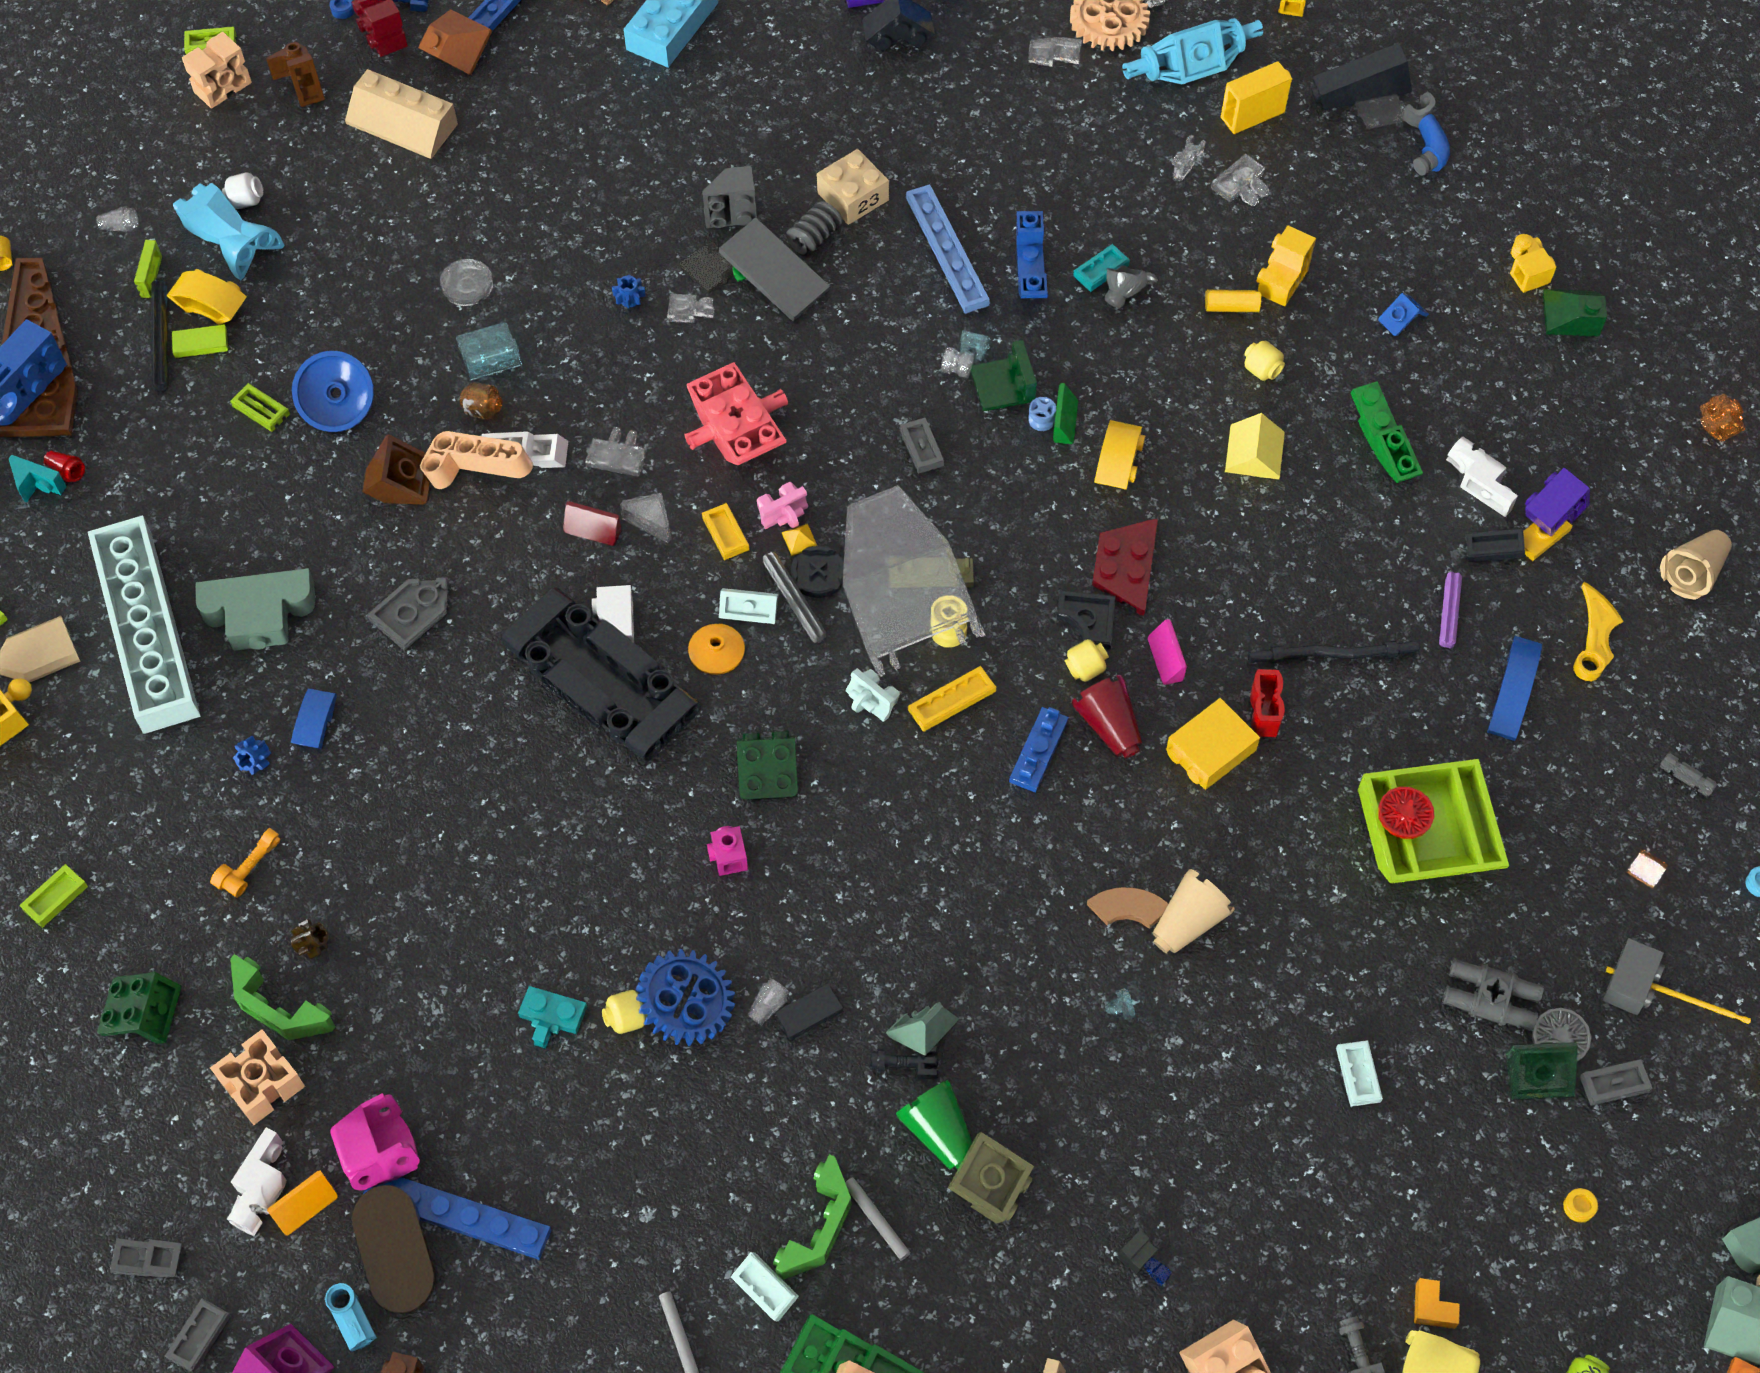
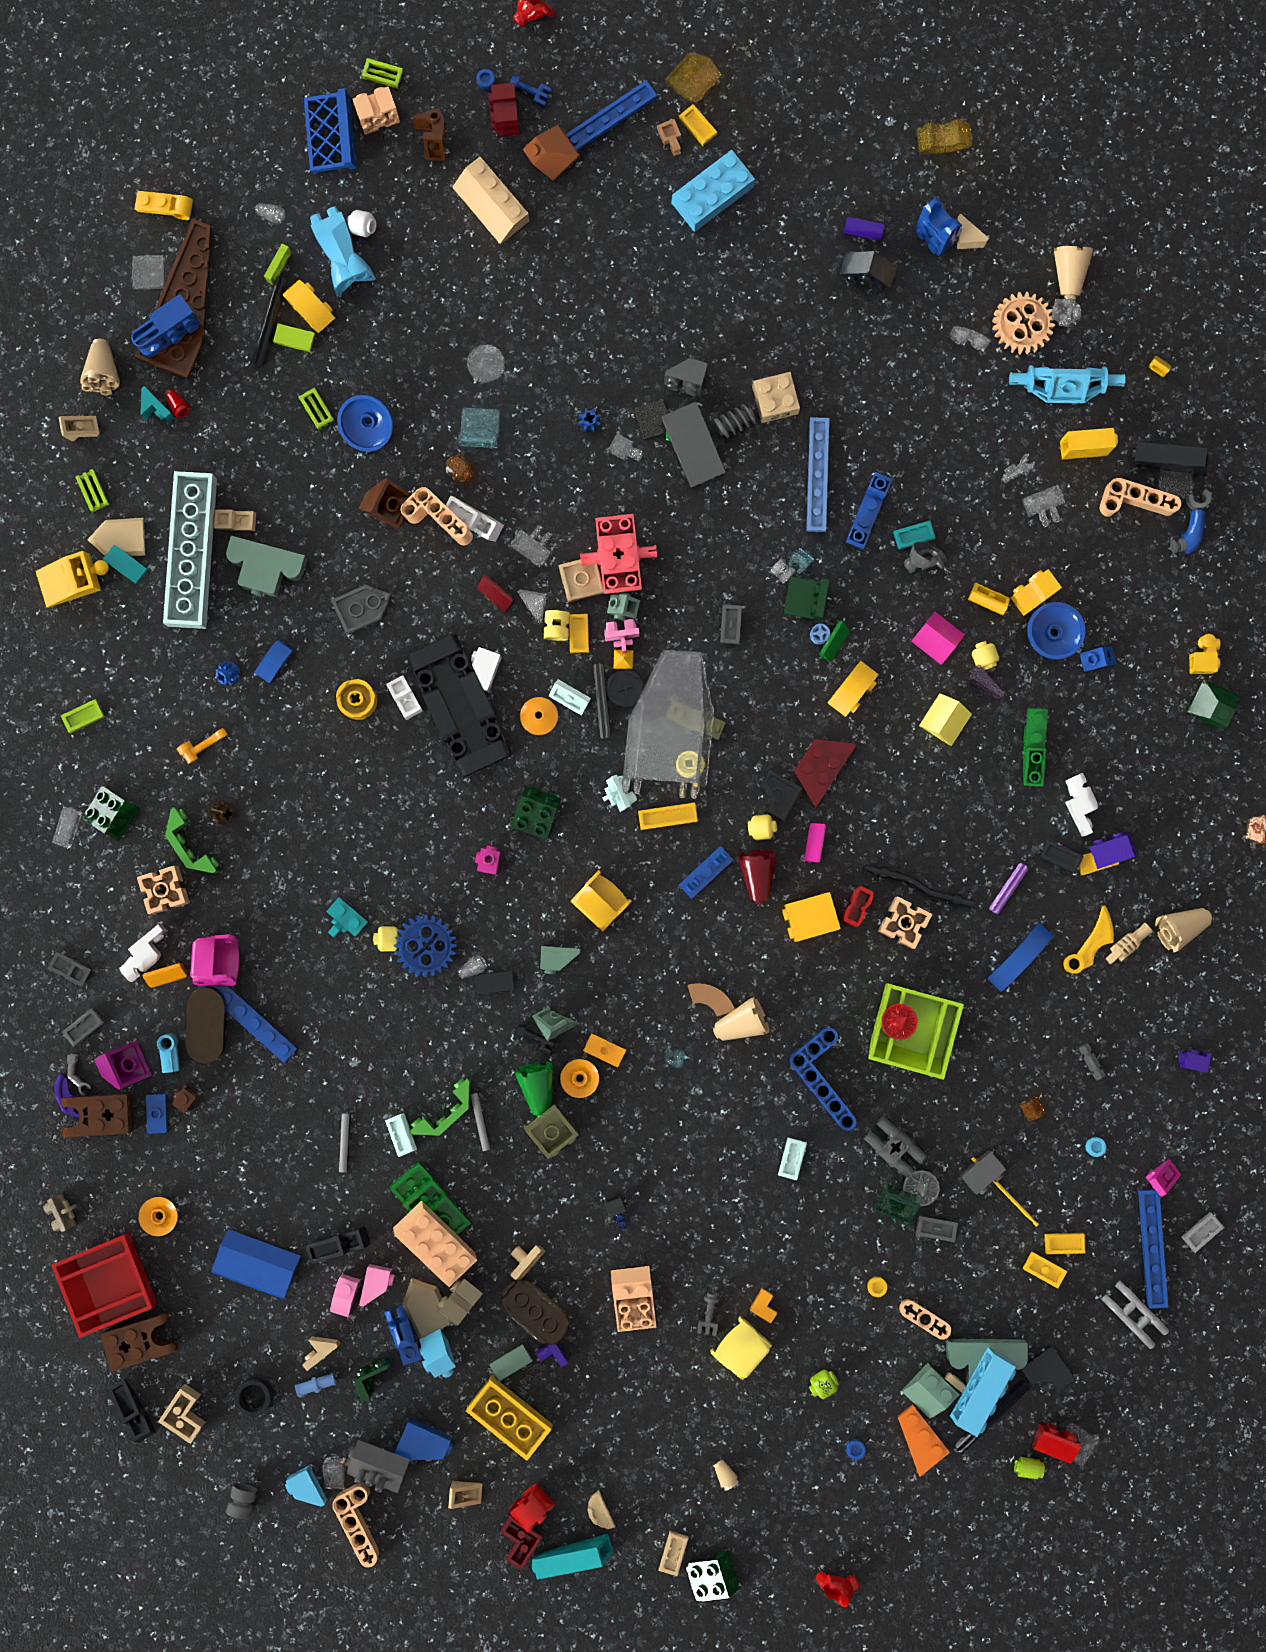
camera: 25 degrees right, 25 degrees up
(57, 678) = (125, 564): none -> teal slope
(77, 1055) = (67, 827): none -> clear slope
(185, 111) = (345, 128): none -> blue fence
(185, 572) = (235, 520): none -> tan slope
(451, 716) = (360, 689): none -> yellow brick
(518, 695) = (404, 697): none -> white slope
(691, 527) = (556, 632): none -> light yellow wheel
(699, 470) = (580, 580): none -> tan tile
(770, 472) = (623, 606): none -> sand green brick
(885, 930) = (556, 958): none -> sand green slope
(910, 841) = (600, 901): none -> yellow piece
(1001, 1076) = (574, 1087): none -> light orange dish
(1013, 1038) = (604, 1050): none -> light orange plate
(1193, 367) = (938, 638): none -> dark pink slope
(1282, 388) = (984, 681): none -> clear purple slope
(1335, 287) = (1067, 624): none -> blue dish
(1340, 698) = (916, 918): none -> light nougat brick
(1341, 947) = (819, 1081): none -> blue beam
(1348, 132) = (1142, 501): none -> light nougat beam
(1643, 613) = (1128, 944): none -> tan hinge
(1698, 1232) = (940, 1322): none -> light nougat beam

